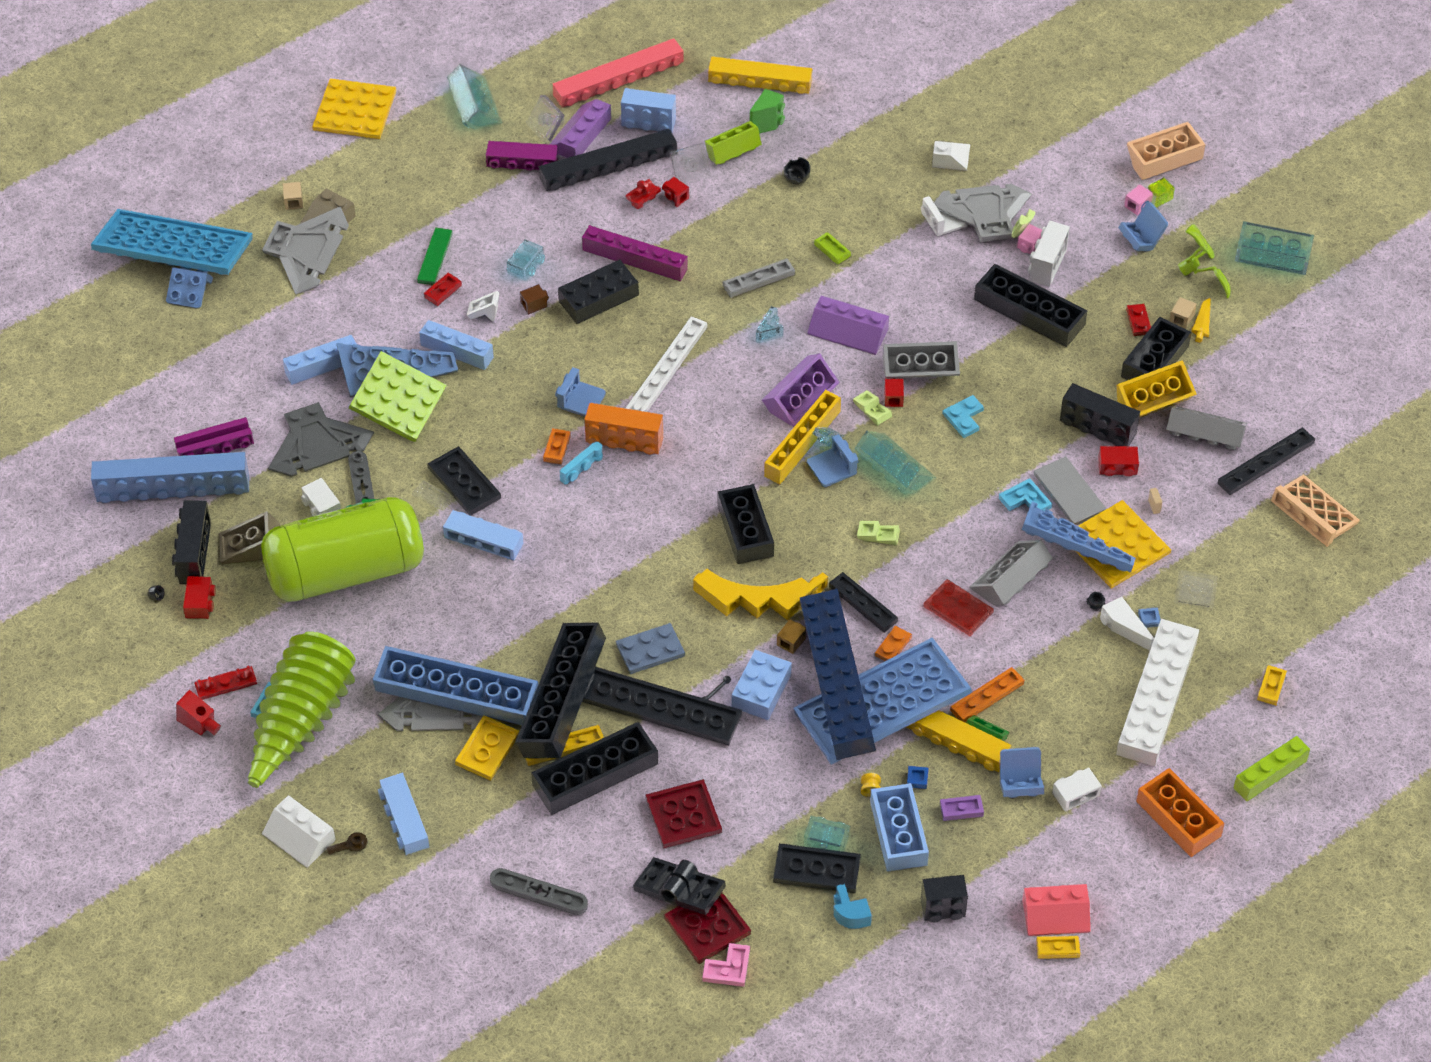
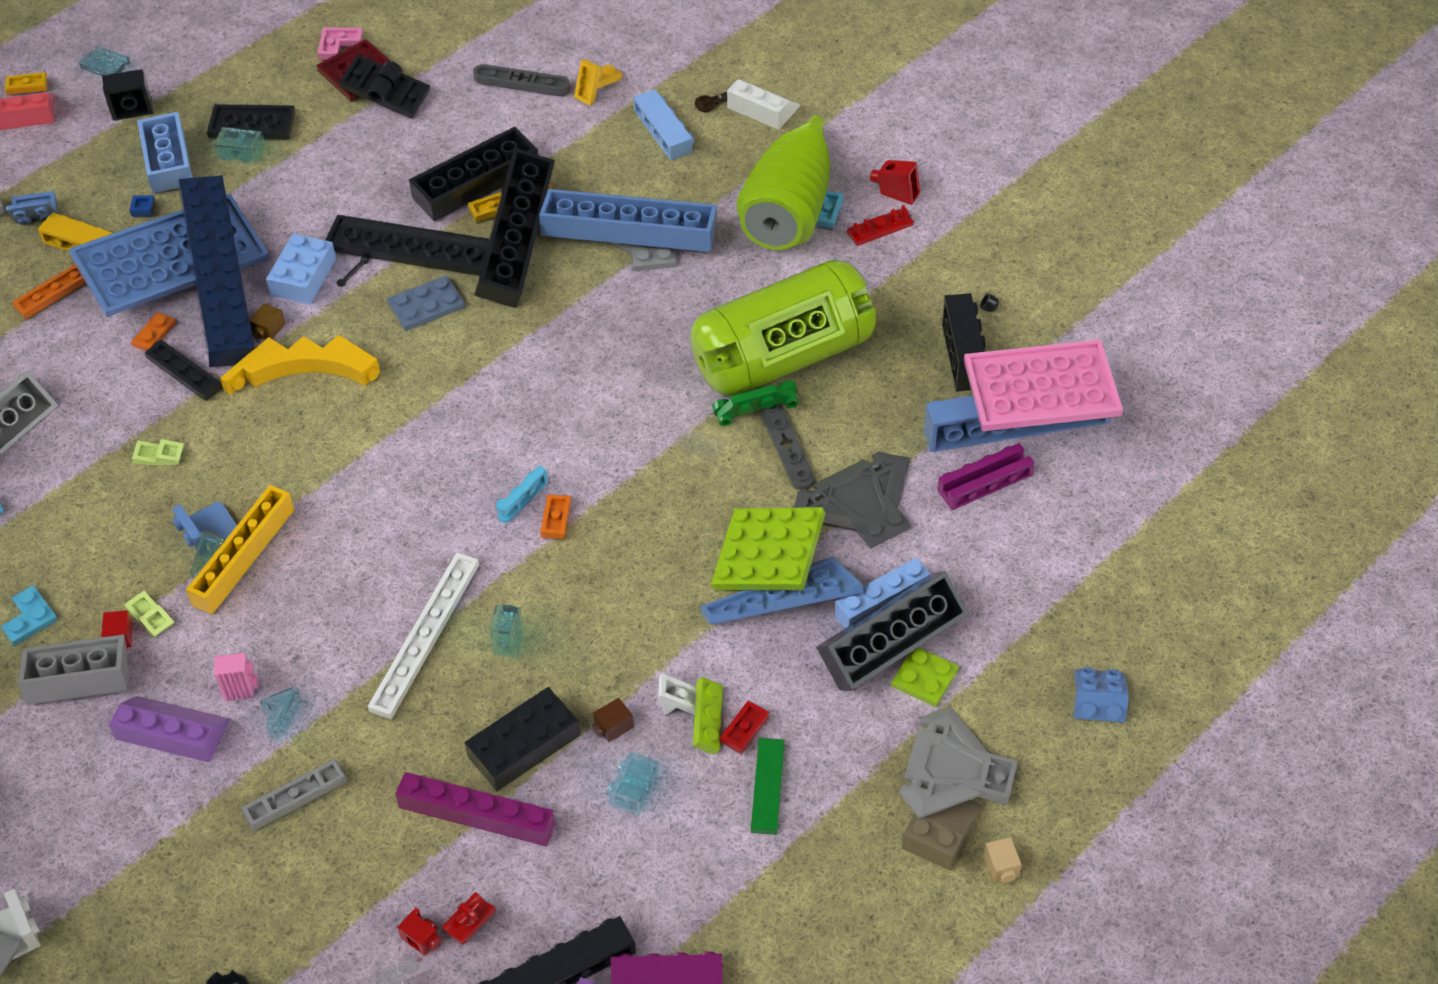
camera: 175 degrees right, 0 degrees up
(147, 465) = (1042, 385): none -> bright pink plate
(172, 241) = (1149, 748): dark azure plate -> none
(198, 597) = (933, 291): red brick -> none
(244, 540) = (899, 363): dark tan slope -> none
(307, 312) = (925, 676): none -> lime plate
(319, 498) = (831, 417): white brick -> none
(322, 325) = (892, 631): none -> black brick
(459, 876) = (592, 78): none -> yellow bracket
(464, 480) = (664, 462): black plate -> none
(465, 347) = (707, 635): light blue brick -> none
(466, 297) = (707, 715): none -> lime plate
(483, 535) = (629, 396): light blue brick -> none
(487, 747) = (594, 178): yellow plate -> none
(576, 395) = (533, 585): medium blue bracket -> none
(602, 353) = (507, 631): none -> clear light blue brick
(624, 428) = (469, 529): orange brick -> none
(683, 813) = (383, 153): dark red plate -> none
(745, 524) = (316, 433): black brick -> none
(800, 389) = (245, 619): medium lavender slope -> none
(801, 341) = (235, 676): none -> bright pink brick
(832, 248) = (183, 858): lime plate -> none
(850, 914) = (219, 86): dark azure brick -> none
(893, 462) = (126, 536): clear light blue slope -> none
(958, 607) = (74, 379): clear red plate -> none
(961, 807) = (100, 183): medium lavender plate -> none
(978, 966) = (104, 62): none -> clear light blue plate
(988, 727) = (56, 252): green plate -> none

